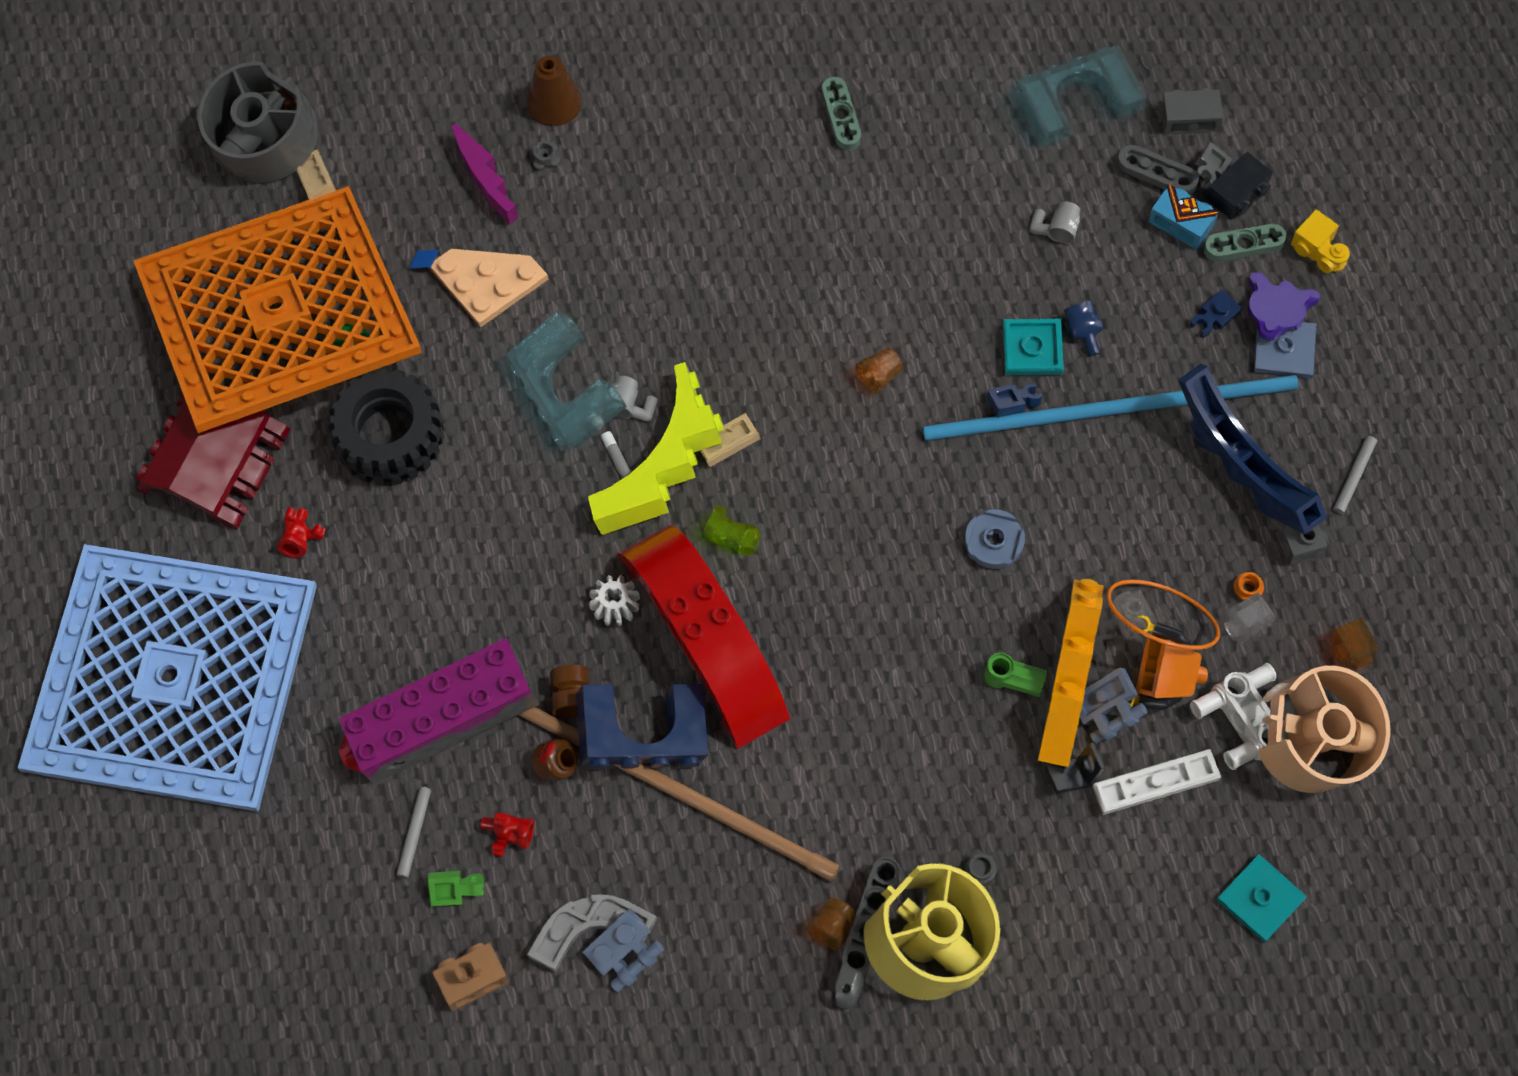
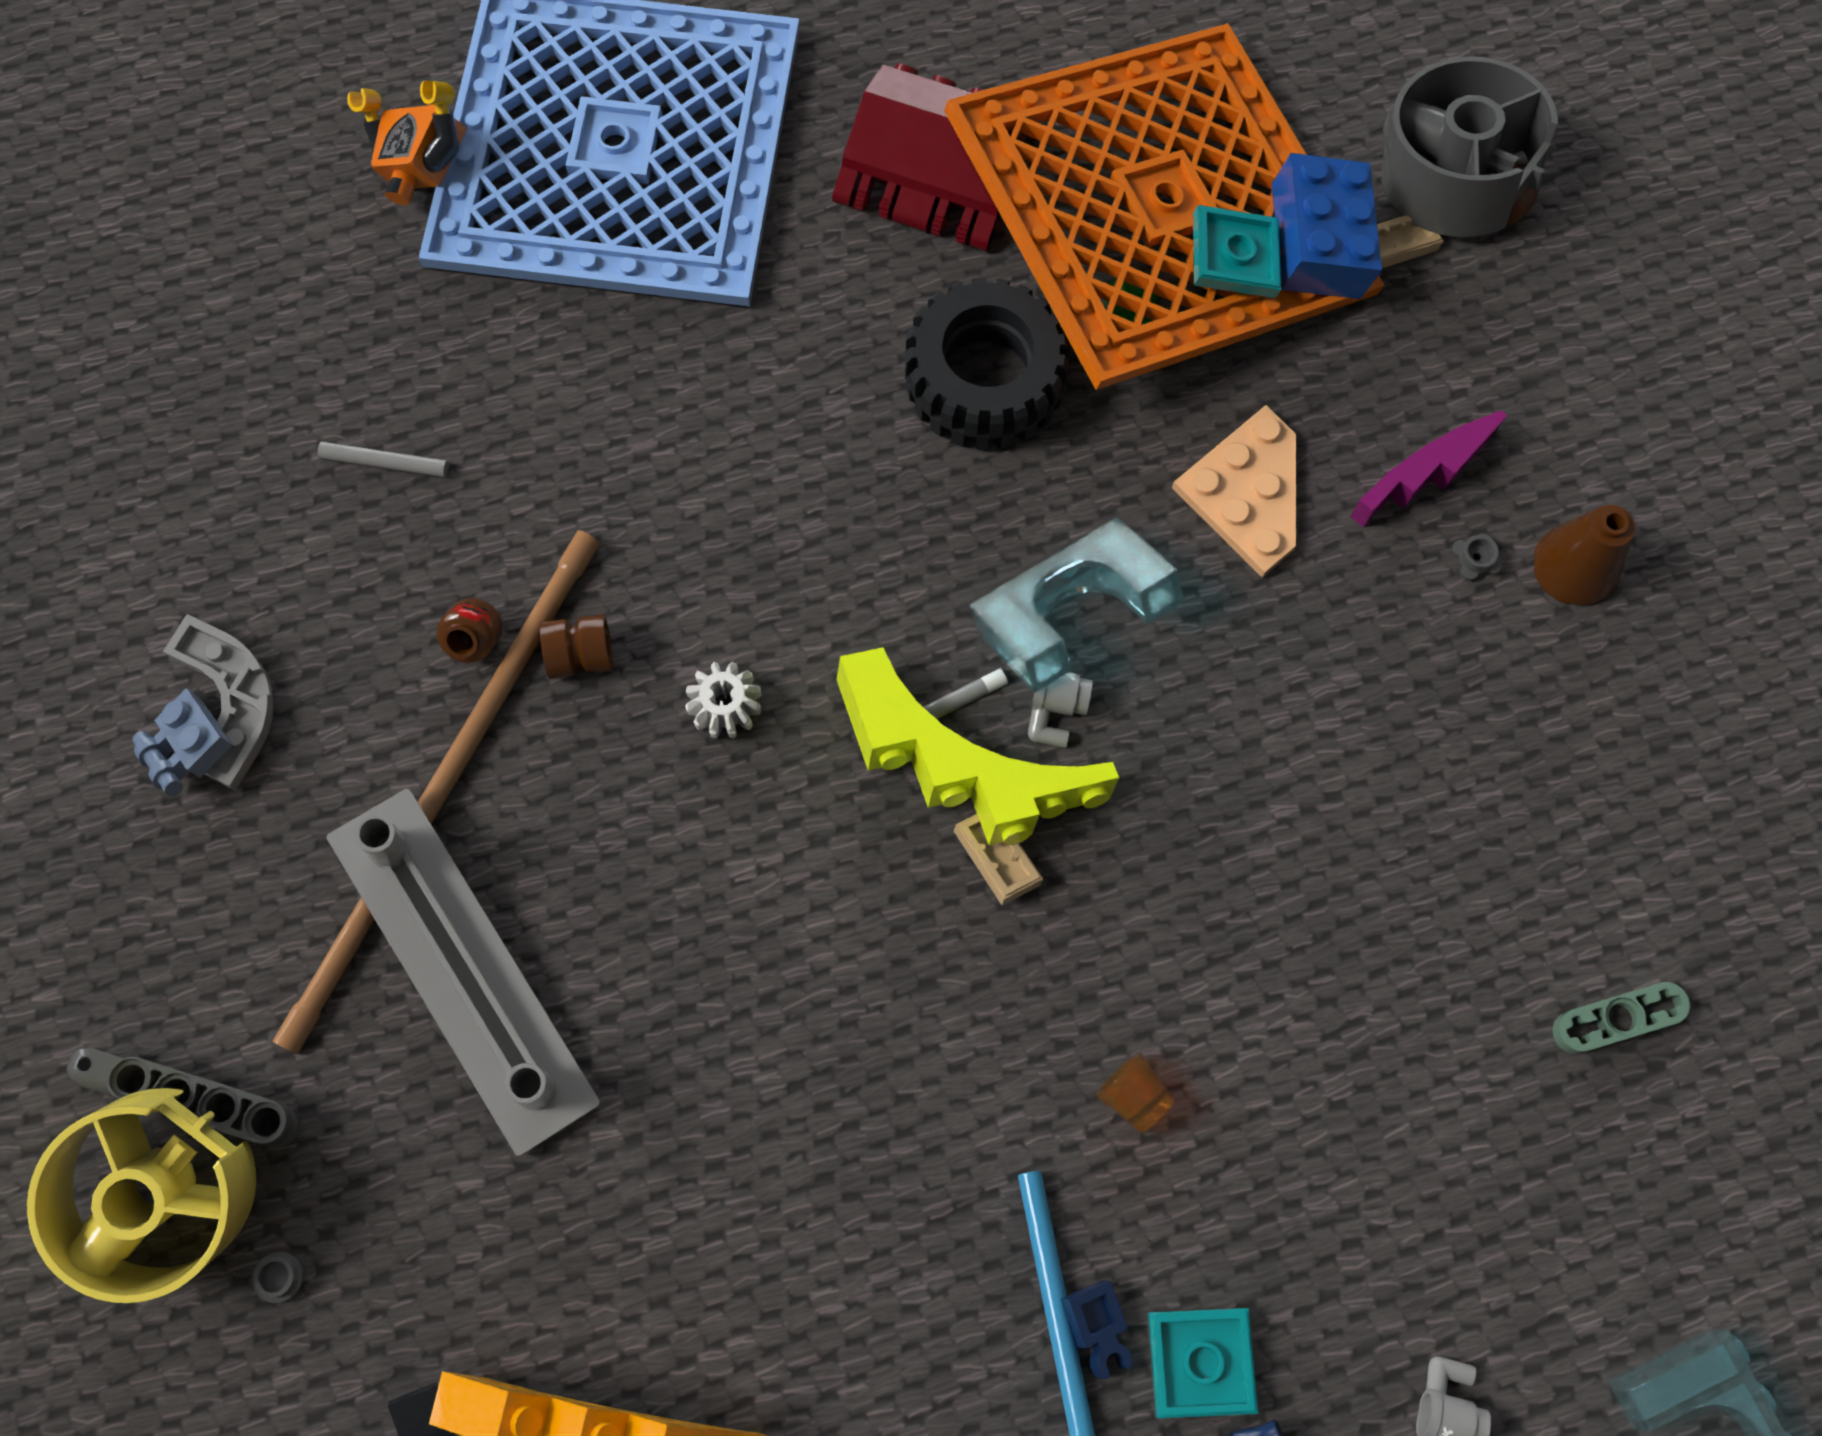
camera: 85 degrees right, 5 degrees up
(161, 812) = (412, 143): none -> torso
(296, 533) = (825, 271): red piece -> none
(310, 210) = (1326, 226): none -> blue piece
(326, 262) = (1236, 251): none -> teal plate
(424, 259) = (1275, 399): blue sticker -> none
(436, 712) = (539, 468): magenta piece -> none
(449, 888) = (292, 508): bright green plate -> none
(470, 976) = (164, 544): medium nougat brick -> none
(509, 829) = (374, 579): red piece -> none
(606, 745) = (471, 693): dark blue arch -> none
(708, 633) = (663, 822): red slope -> none
(731, 534) = (836, 865): clear neon green leg -> none
(787, 759) = (463, 972): none -> light grey piece
(831, 923) = (198, 1042): clear orange piece -> none
(992, 555) = (815, 1311): sand blue plate -> none
(1017, 677) = (594, 1336): bright green piece -> none

